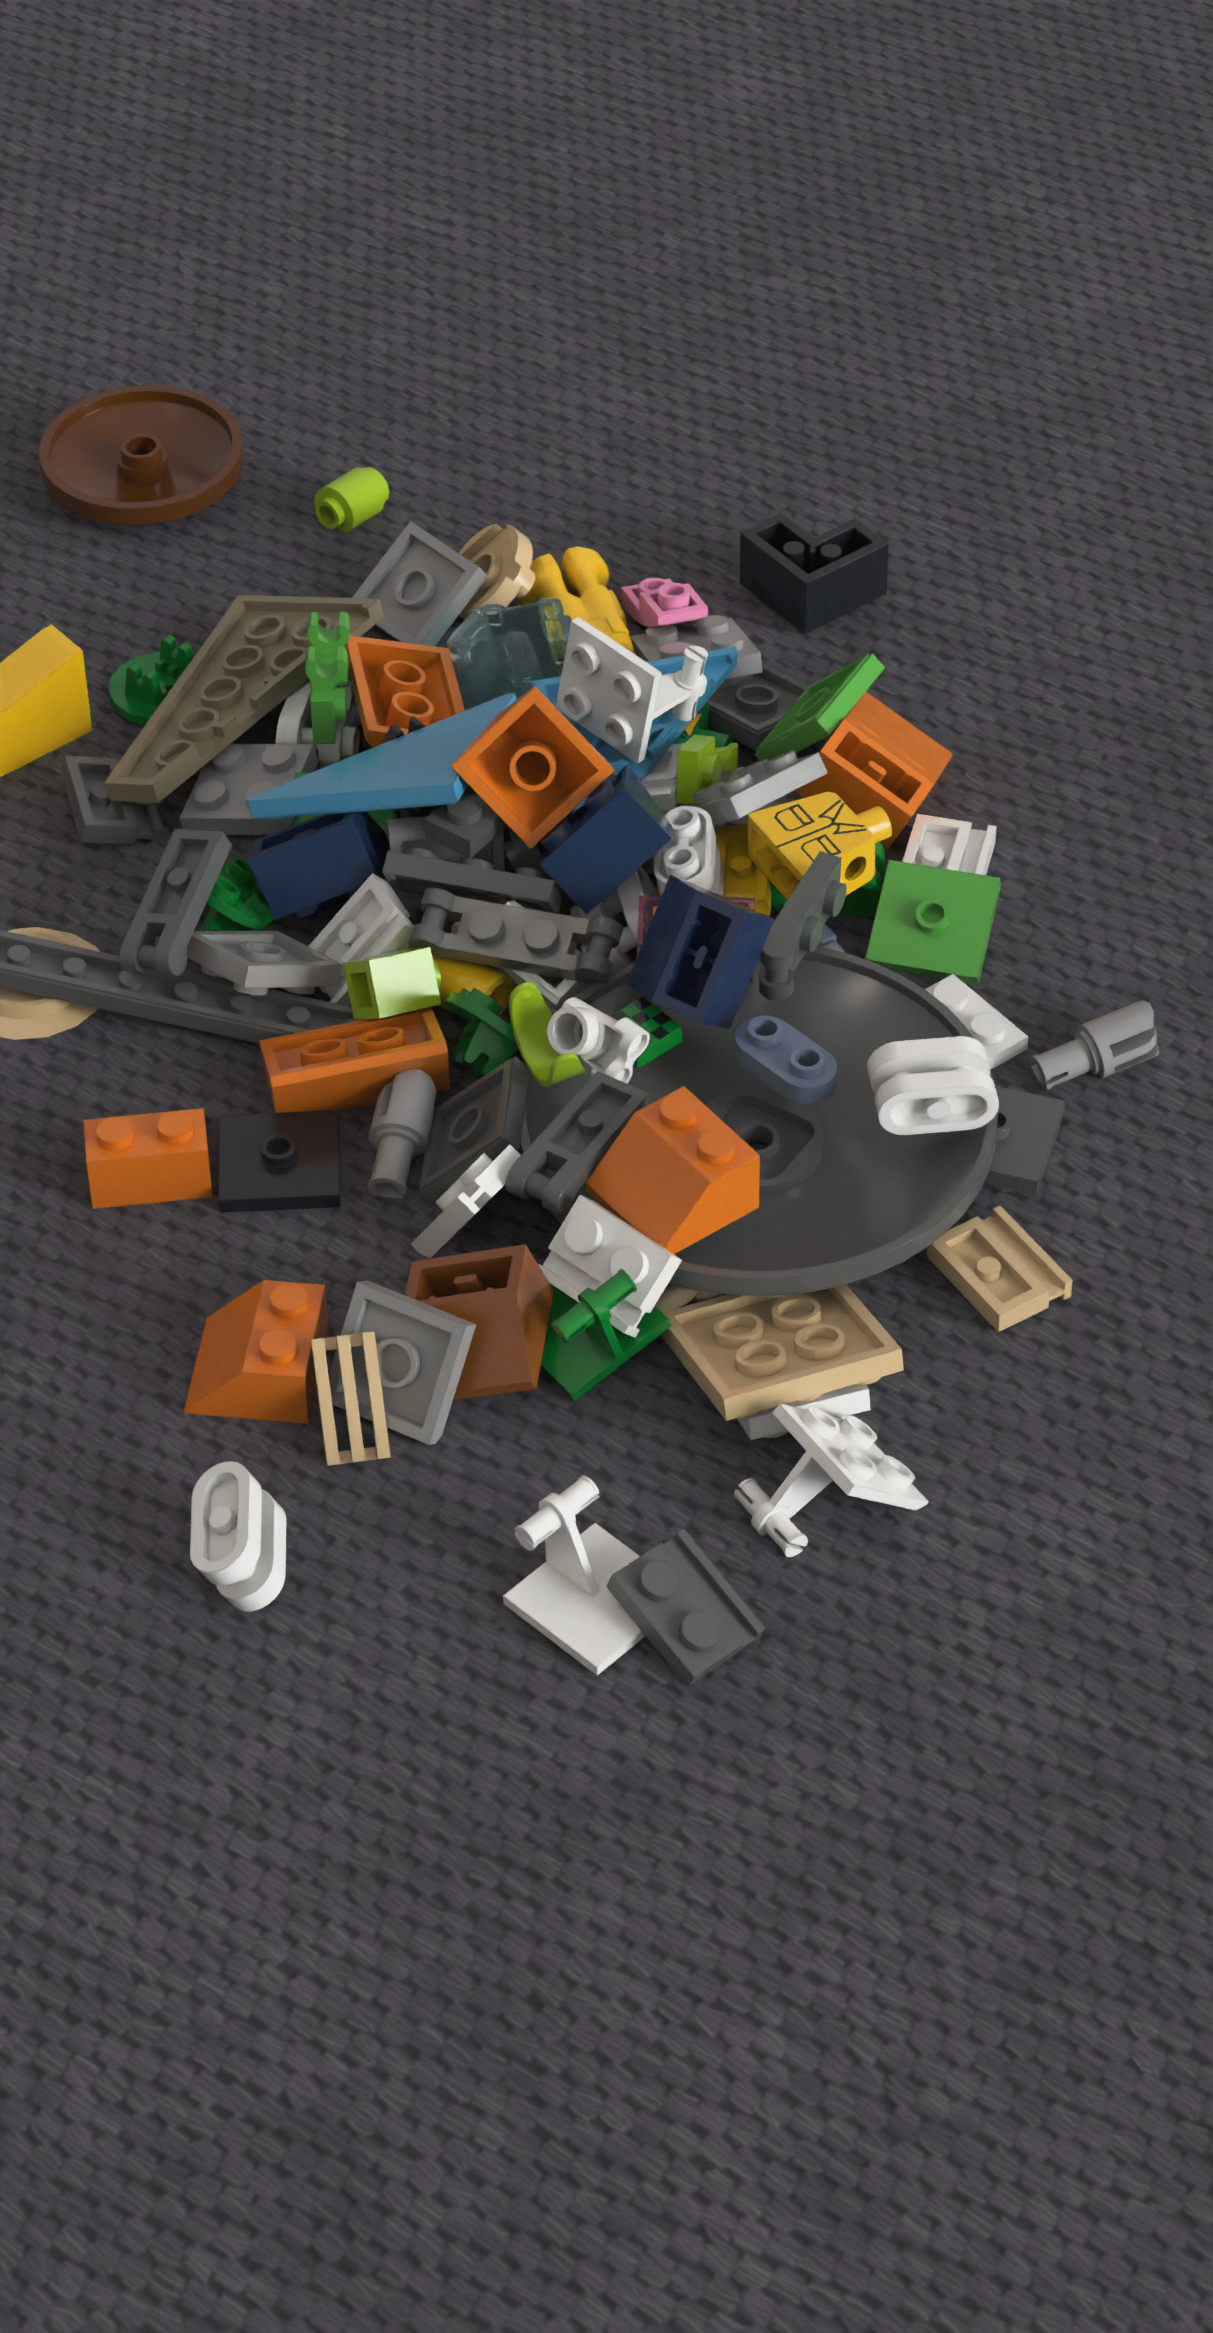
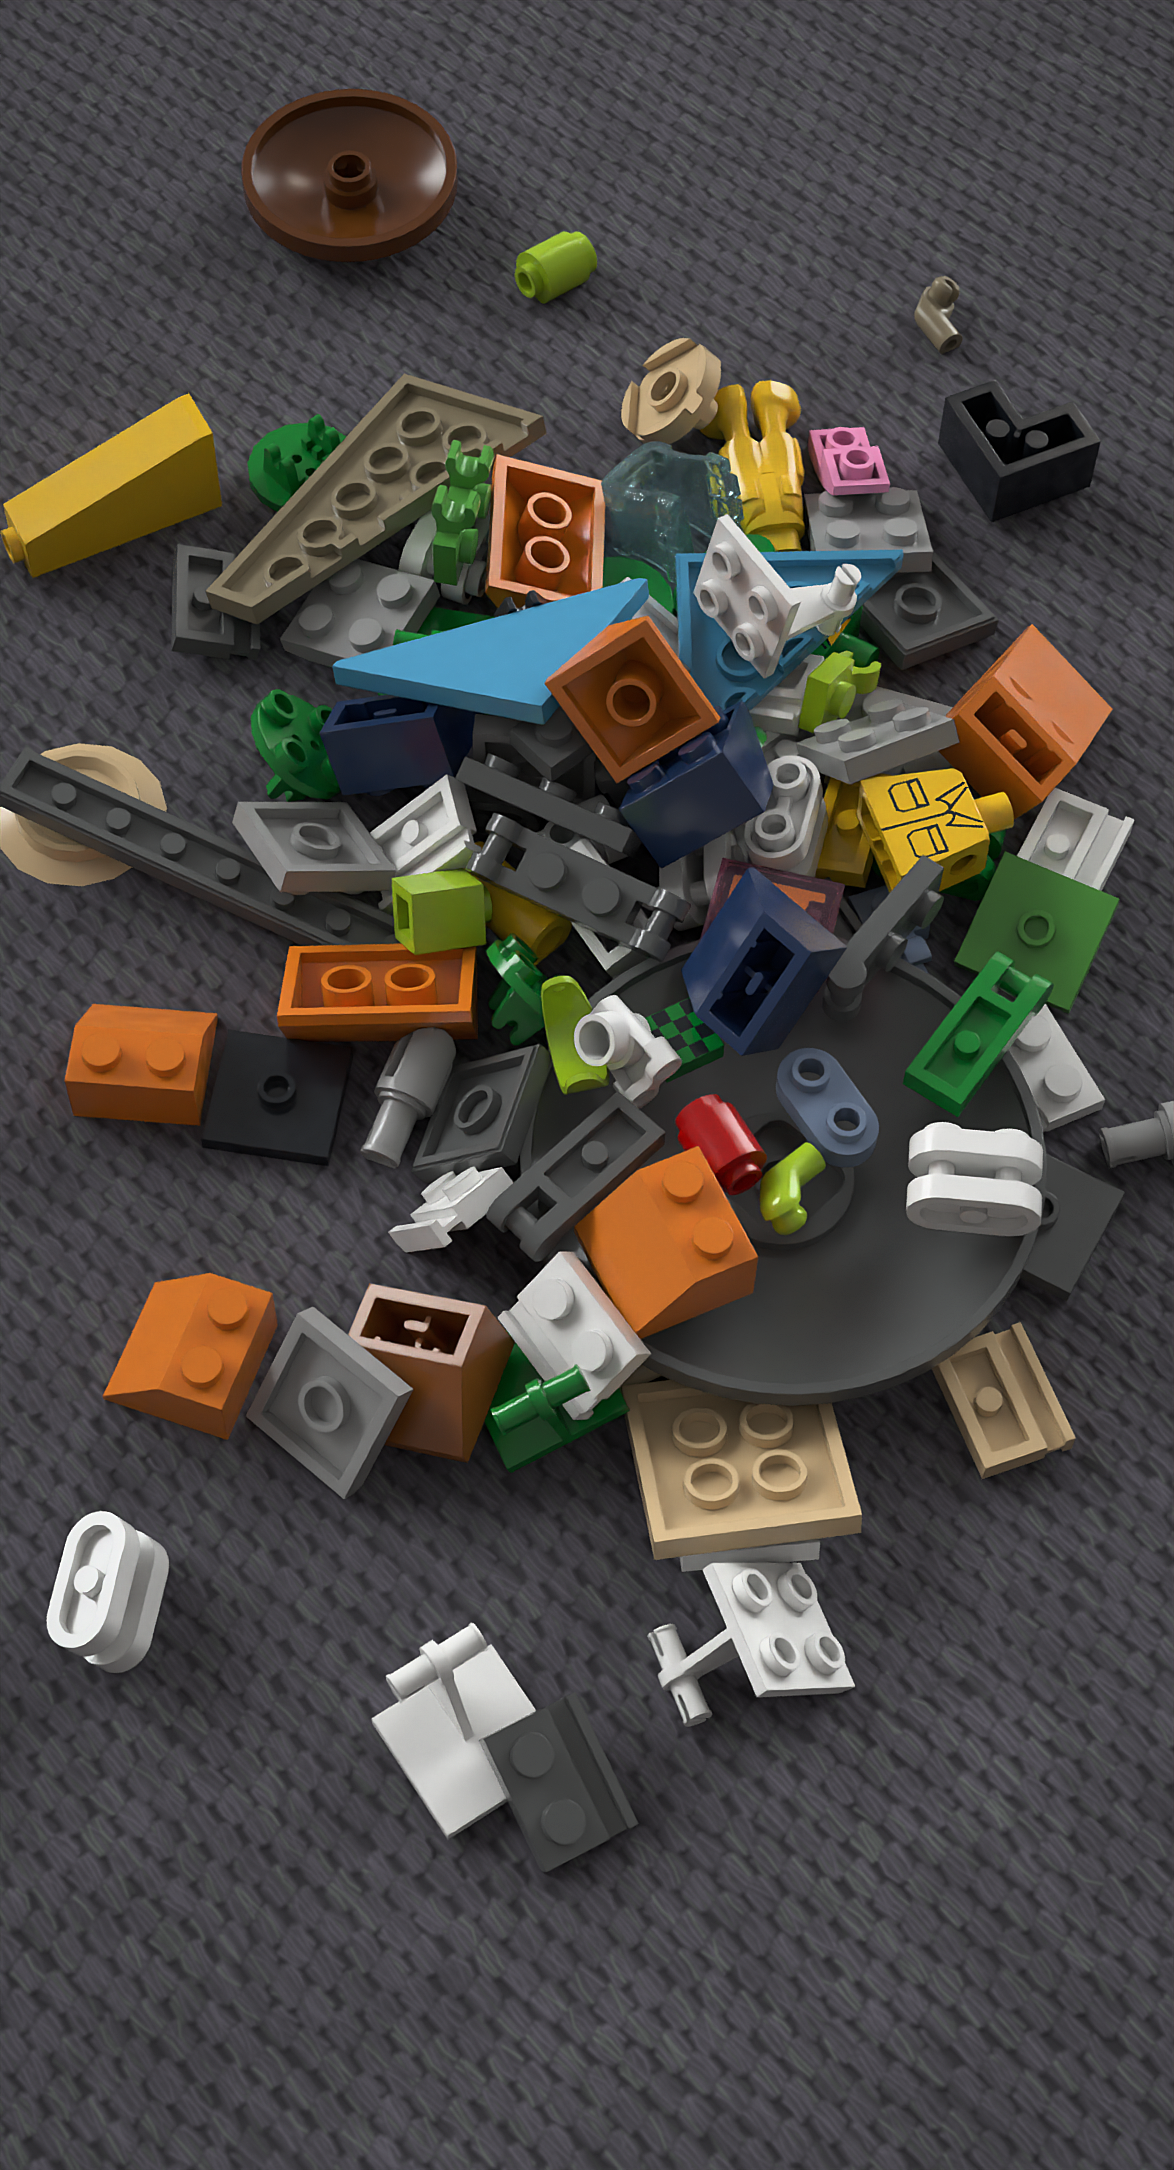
camera: 10 degrees right, 15 degrees up
(174, 902) = (231, 771): dark grey plate -> none
(357, 1452) = (266, 1491): tan tile -> none
(421, 587) = (593, 399): light grey plate -> none
(706, 1084) = (724, 1141): none -> red brick
(709, 487) = (934, 313): none -> dark tan arm
(764, 1121) = (782, 1188): none -> lime arm
(820, 708) = (974, 646): bright green plate -> none
(903, 982) = (976, 1034): none -> green plate

